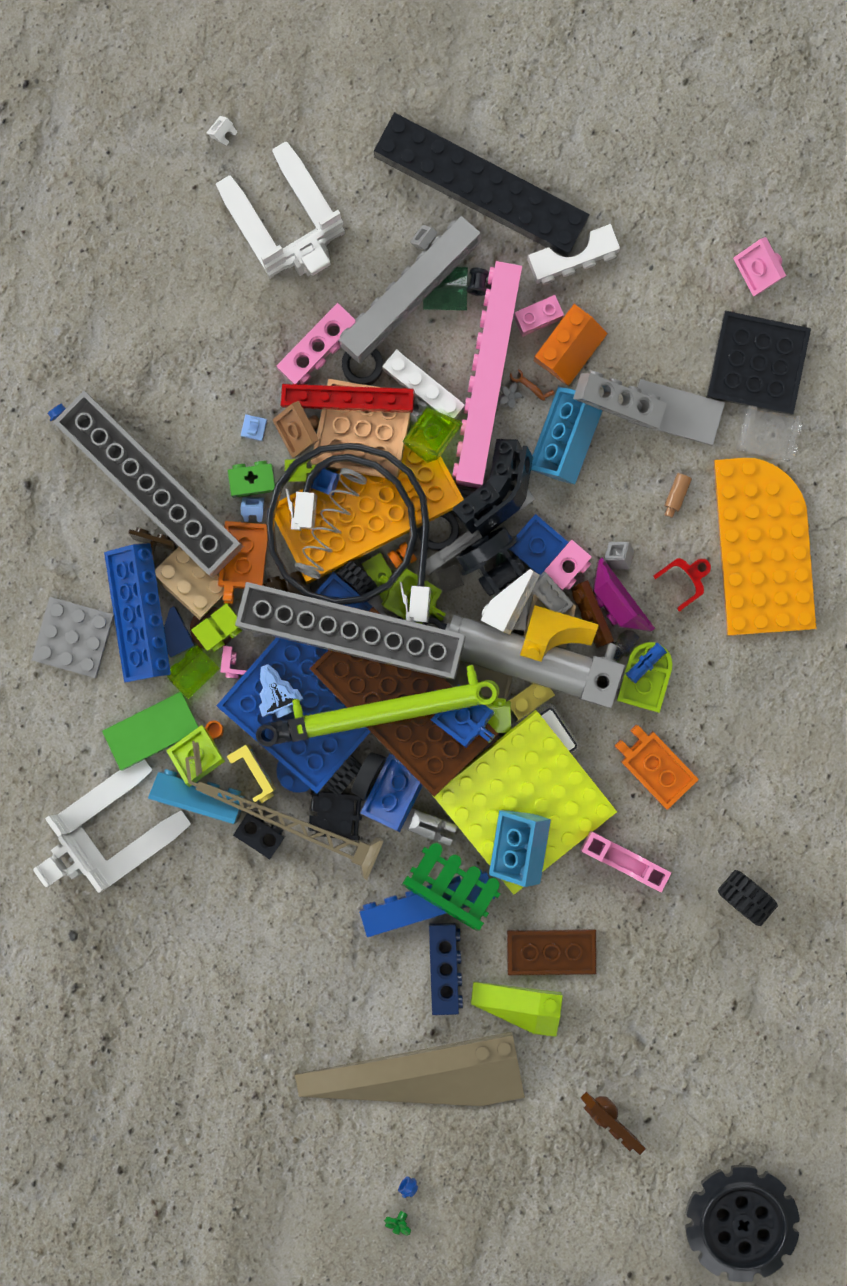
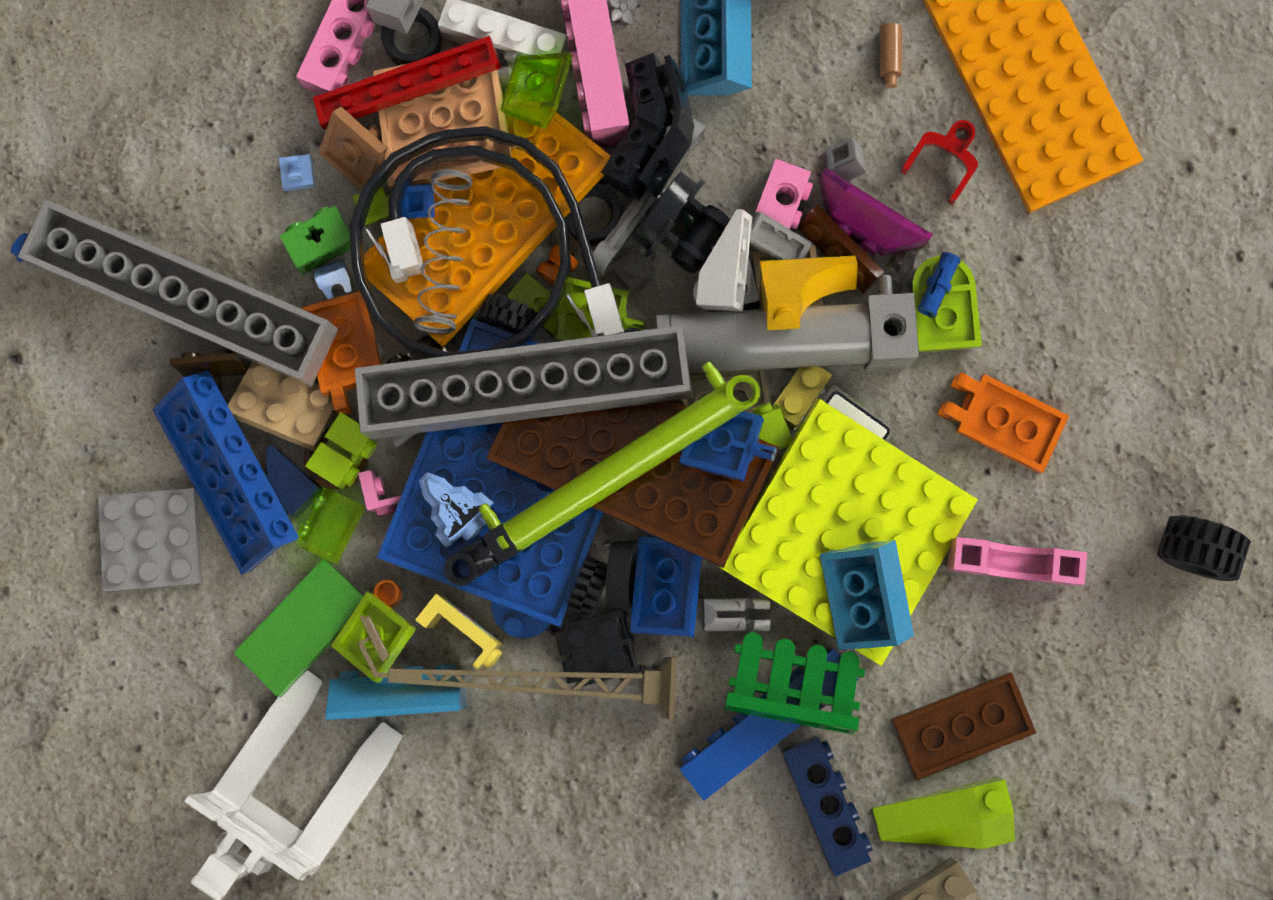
camera: 20 degrees left, 5 degrees down
(256, 840) = (501, 723): black brick -> none
(538, 544) = (733, 182): blue plate -> none

